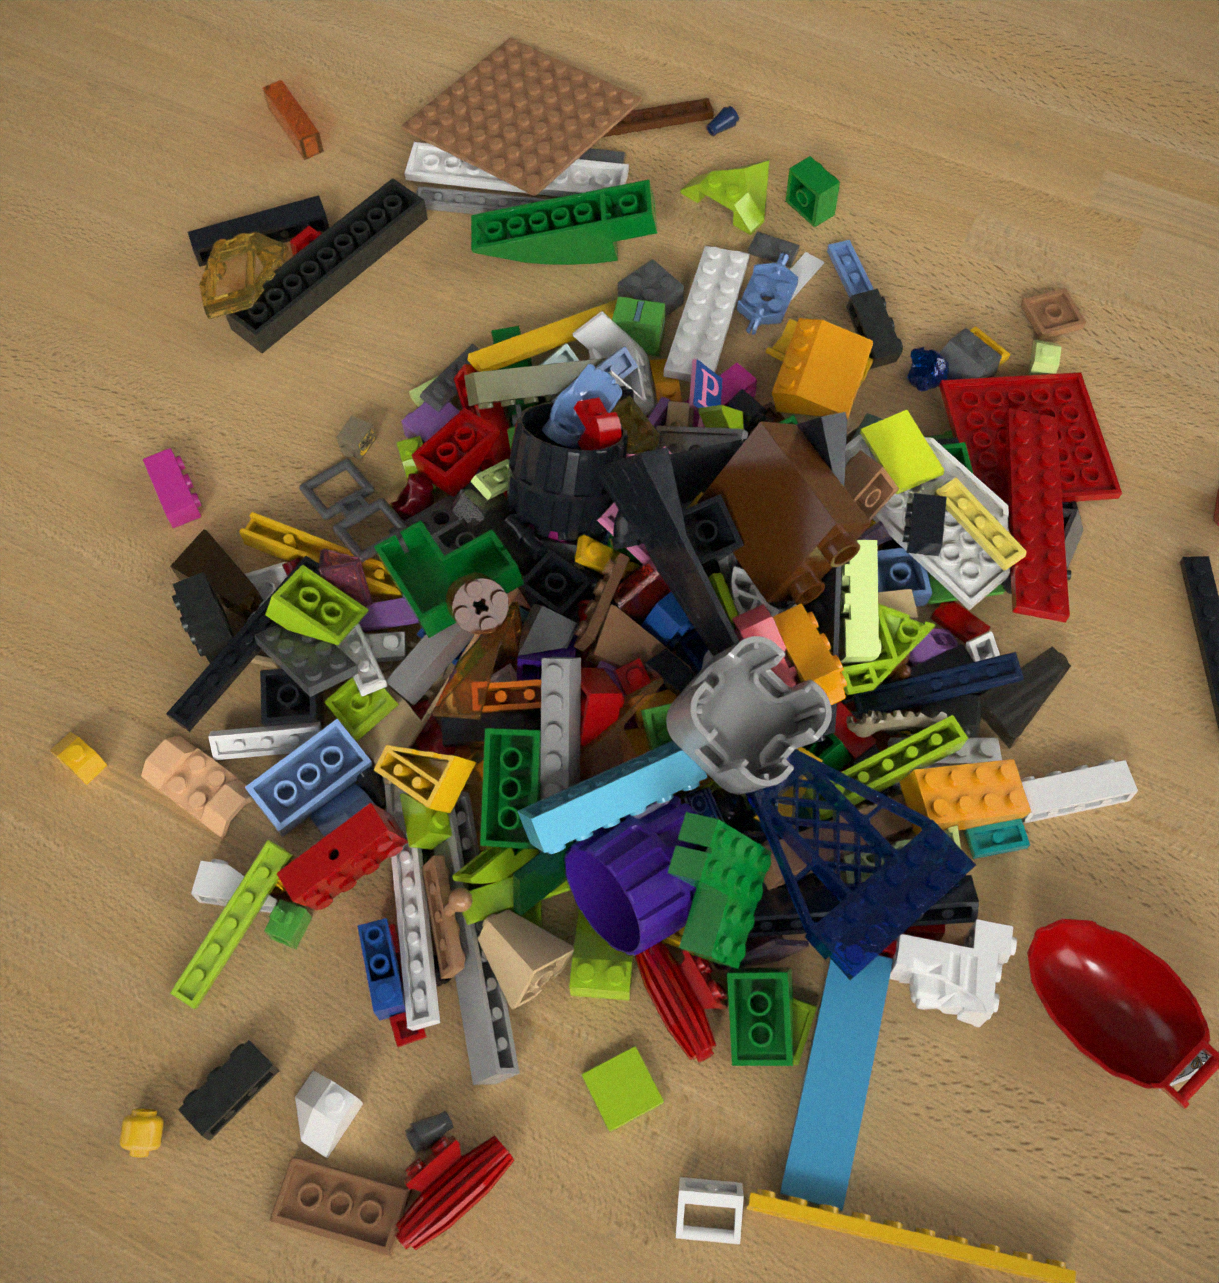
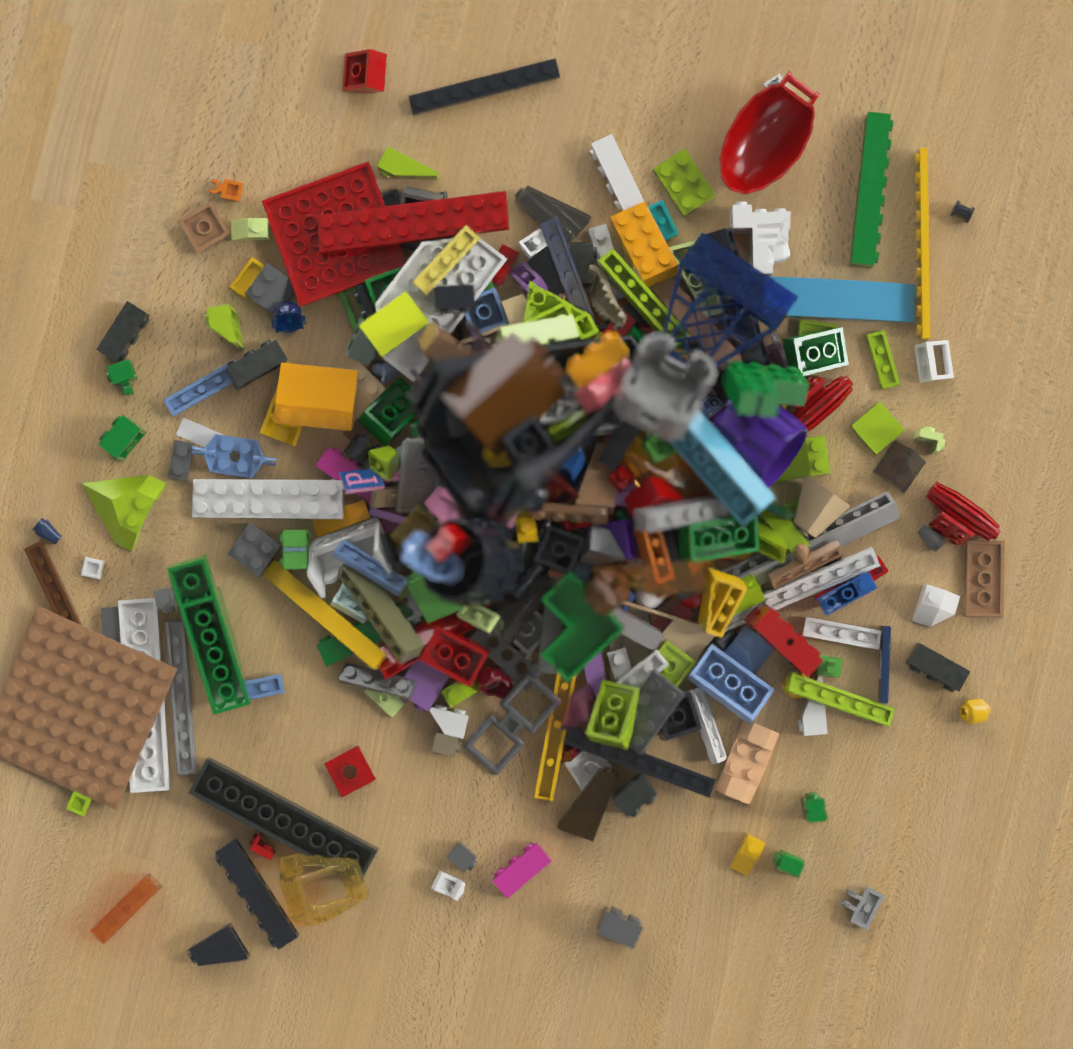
camera: 105 degrees left, 25 degrees up
(36, 797) = (788, 863): none -> green brick
(49, 573) = (620, 927): none -> dark grey brick
(95, 850) = (814, 807): none -> green brick
(188, 409) = (448, 885): none -> white bracket
(214, 190) = (219, 948): none -> black slope
(214, 429) = (462, 857): none -> dark grey brick
(262, 1007) = (884, 664): none -> dark blue tile
(328, 957) = (841, 633): none -> white plate
(359, 353) = (352, 757): none -> red piece
(379, 448) = (450, 722): none -> white slope
(418, 100) = (79, 804): none -> lime plate
(488, 277) = (265, 686): none -> medium blue plate
(553, 1109) = (899, 466): none -> clear smoke slope
(589, 1163) = (929, 435): none -> yellowish green bracket
(671, 155) = (92, 568): none -> white tile
(728, 1124) = (882, 359): none -> lime tile
(887, 210) = (122, 374): none -> green brick
(928, 299) = (225, 323): none -> lime slope
(936, 218) = (123, 332): none -> pearl dark grey brick
(1014, 1171) = (870, 190): none -> green brick
(1052, 885) = (684, 182): none -> lime plate
(1098, 344) = (230, 190): none -> orange plate
(1111, 528) = (403, 167): none -> lime slope

